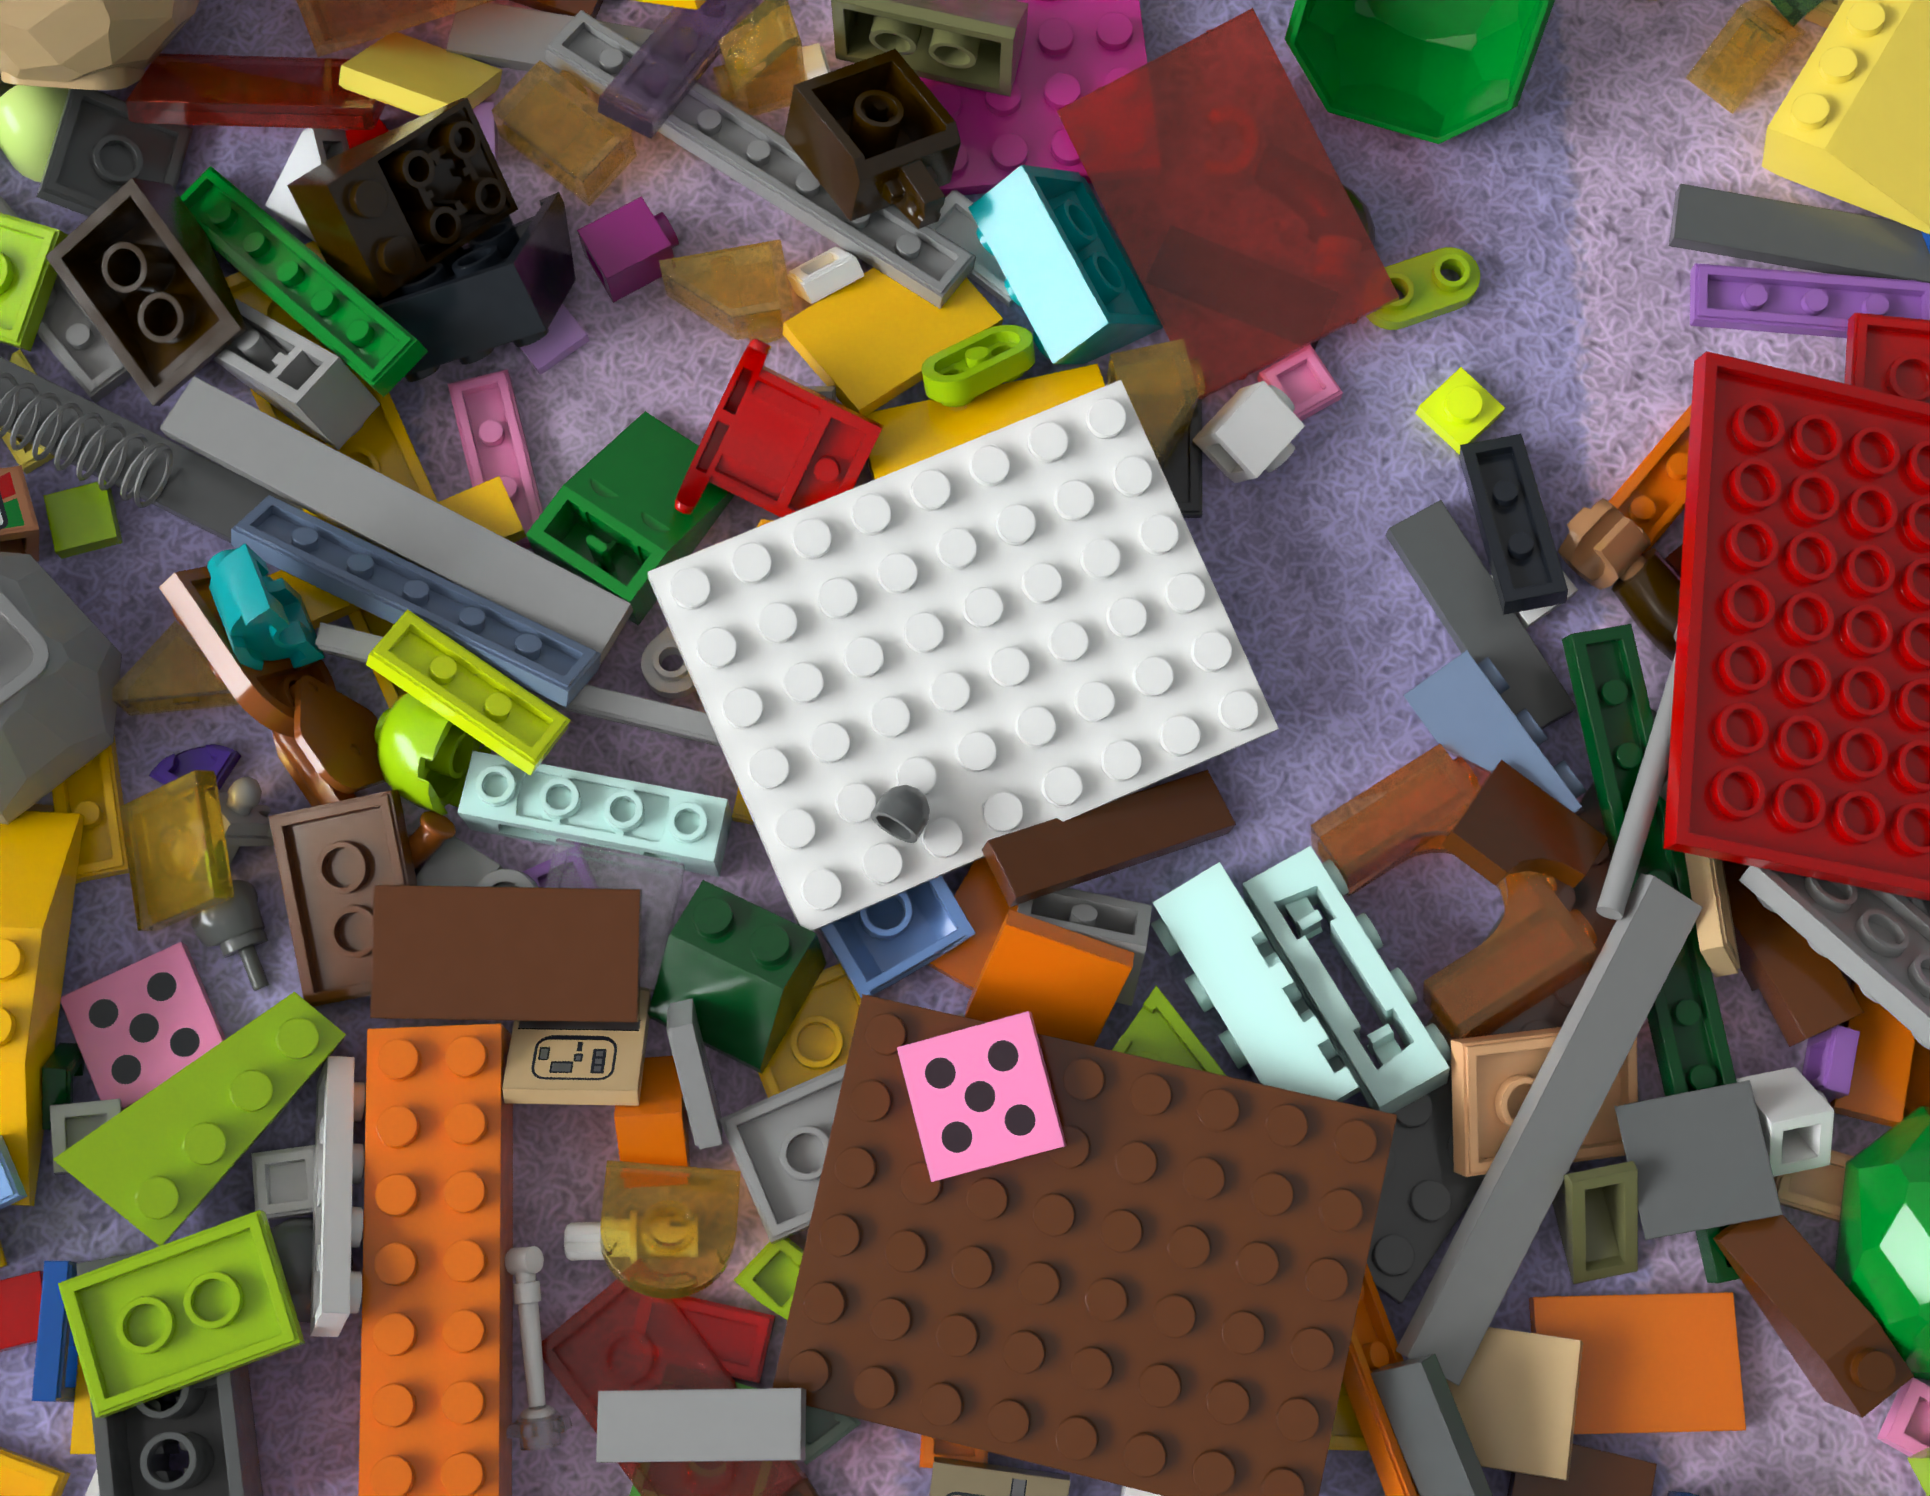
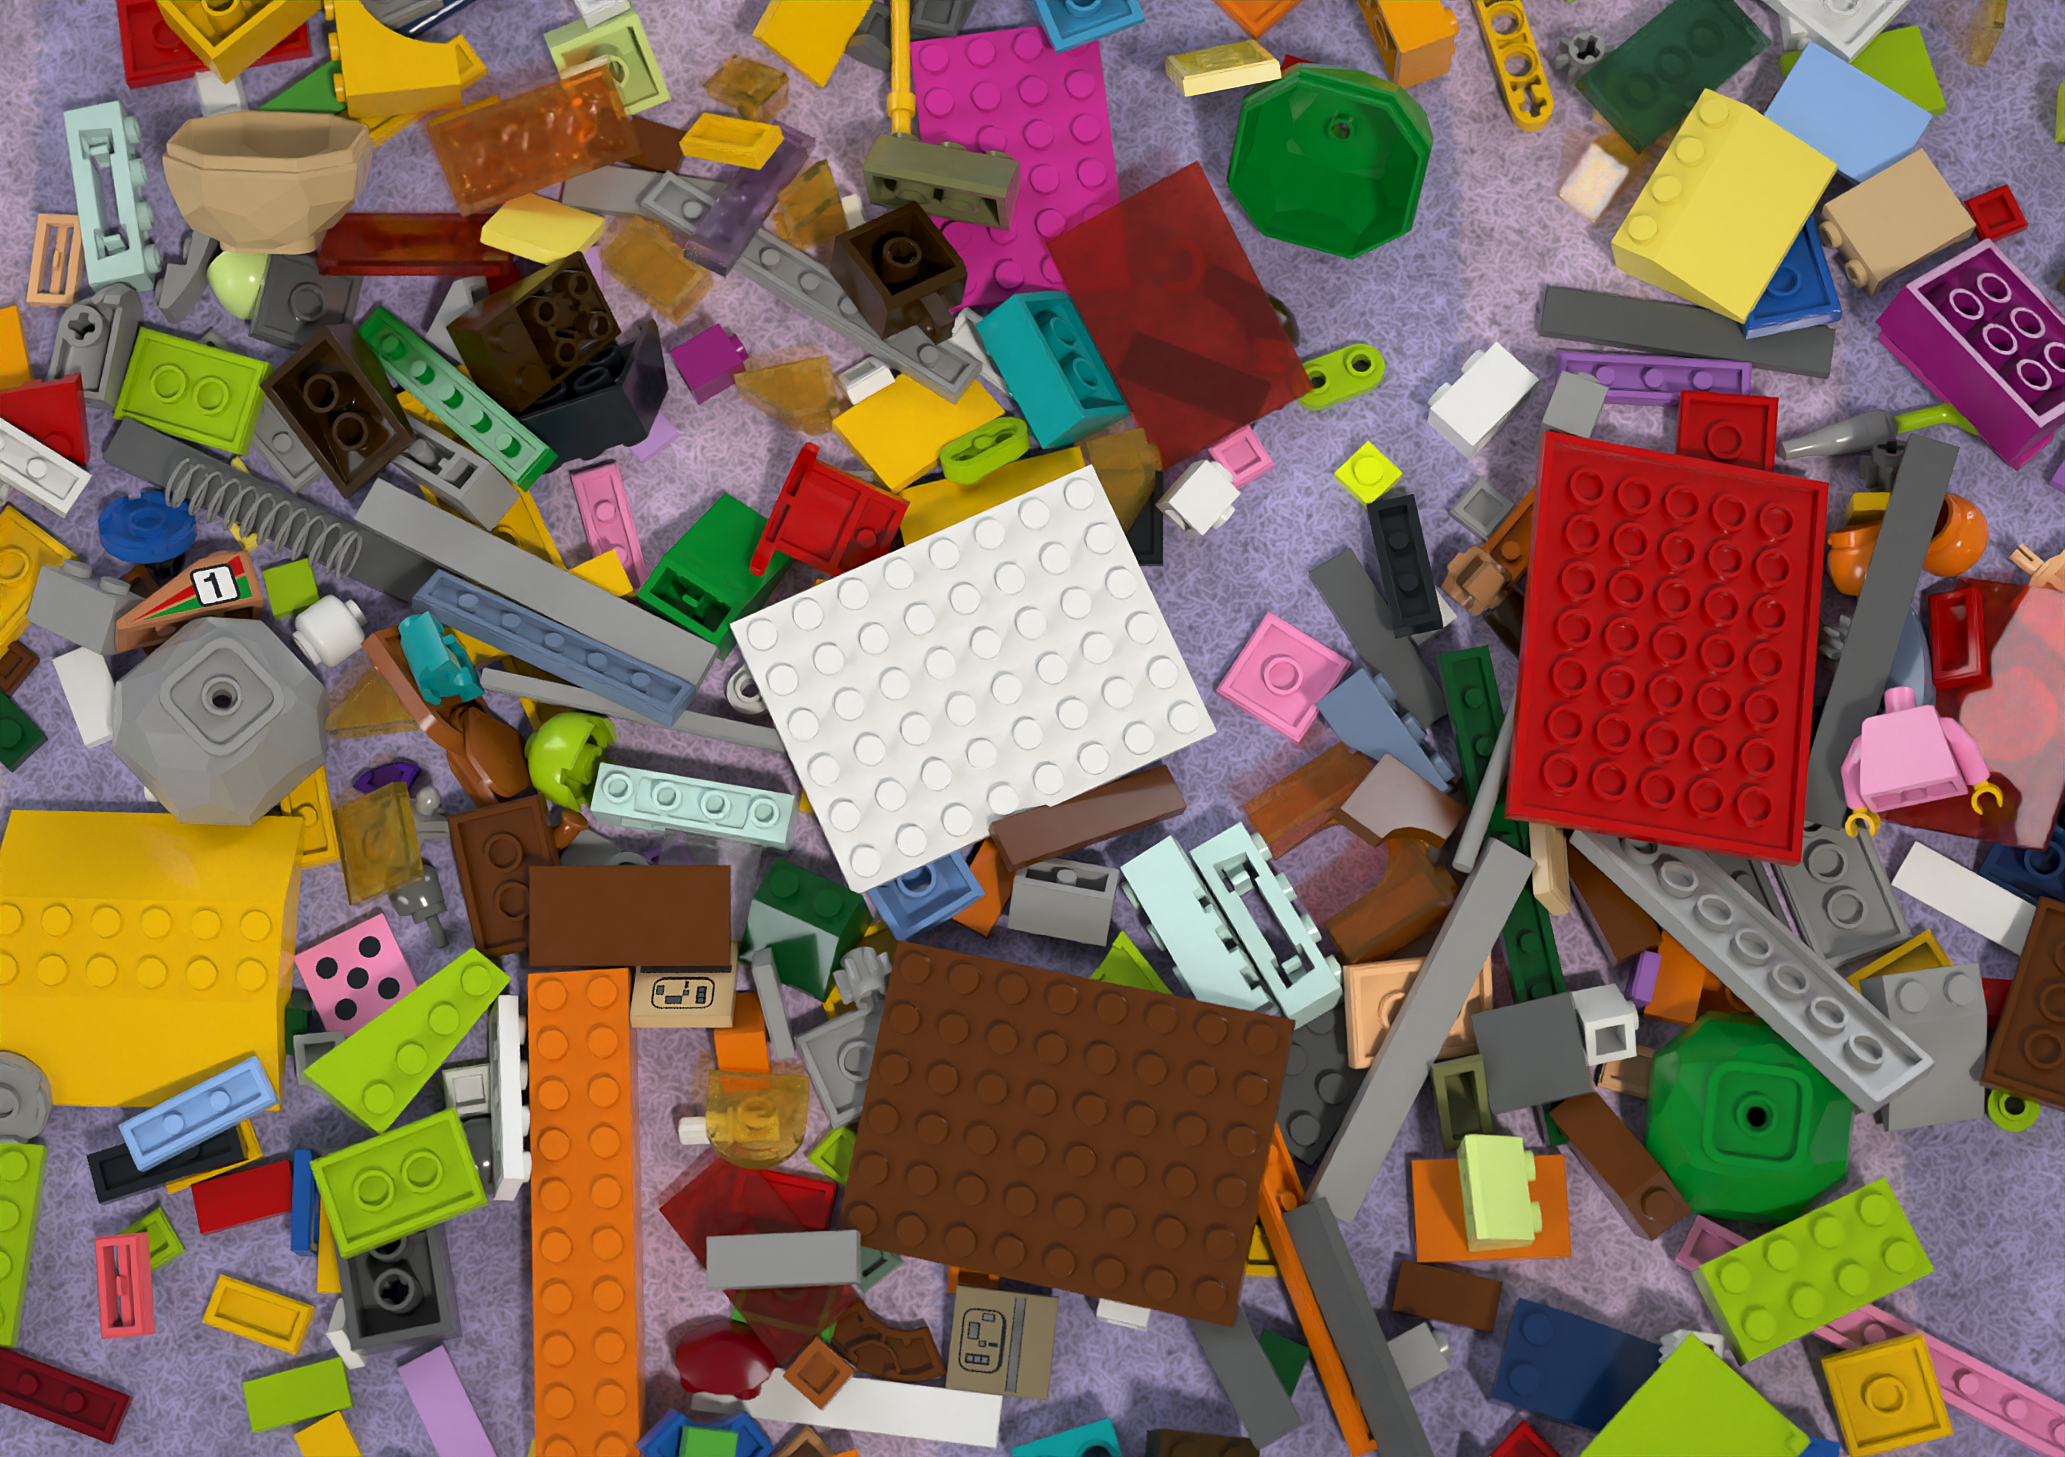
camera: 10 degrees right, 0 degrees up
(125, 573) = (330, 631): none -> white head
(468, 692) = (596, 718): neon yellow tile -> none
(540, 1423) = (662, 1264): white piece -> none
(815, 1042) = (864, 977): none -> light grey gear
(902, 813) = (925, 803): dark grey hinge -> none
(981, 1096) = (986, 1013): bright pink tile -> none
(1053, 974) = (1041, 927): orange tile -> none
(1356, 662) = (1282, 677): none -> bright pink tile
(1521, 1401) = (1397, 1236): tan tile -> none
(1604, 320) = (1481, 400): none -> white brick
(1605, 457) = (1482, 509): none -> light grey tile
(1653, 1348) = (1496, 1192): none -> yellowish green slope
(1730, 324) = (1573, 406): none -> light grey brick

